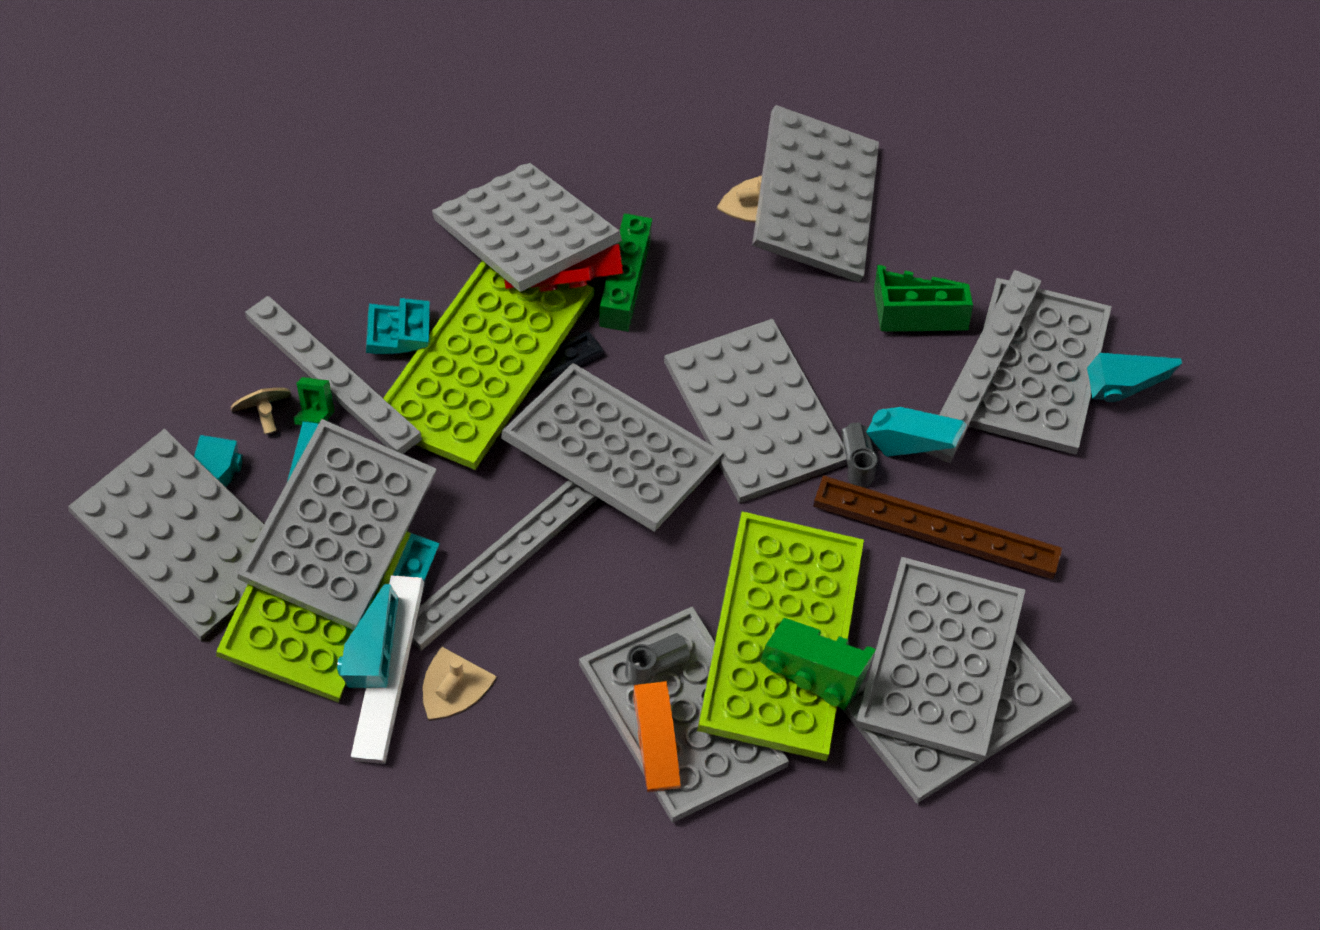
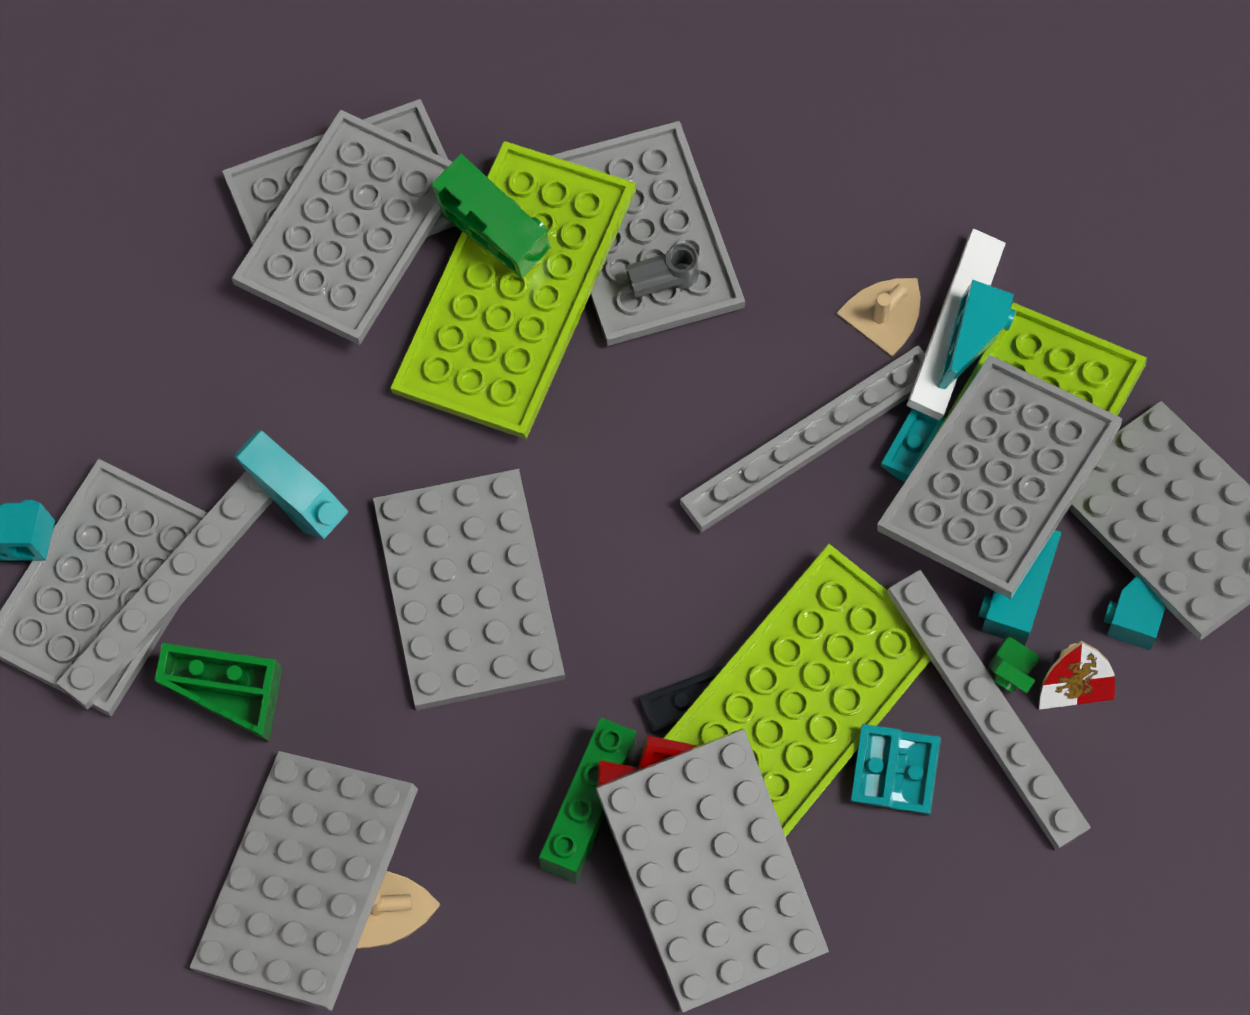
camera: 165 degrees left, 10 degrees up
(612, 446) = (658, 549): light grey plate -> none
(656, 736) = (680, 190): orange slope -> none
(859, 454) = (362, 498): dark grey piece -> none
(938, 527) = (301, 395): reddish brown plate -> none

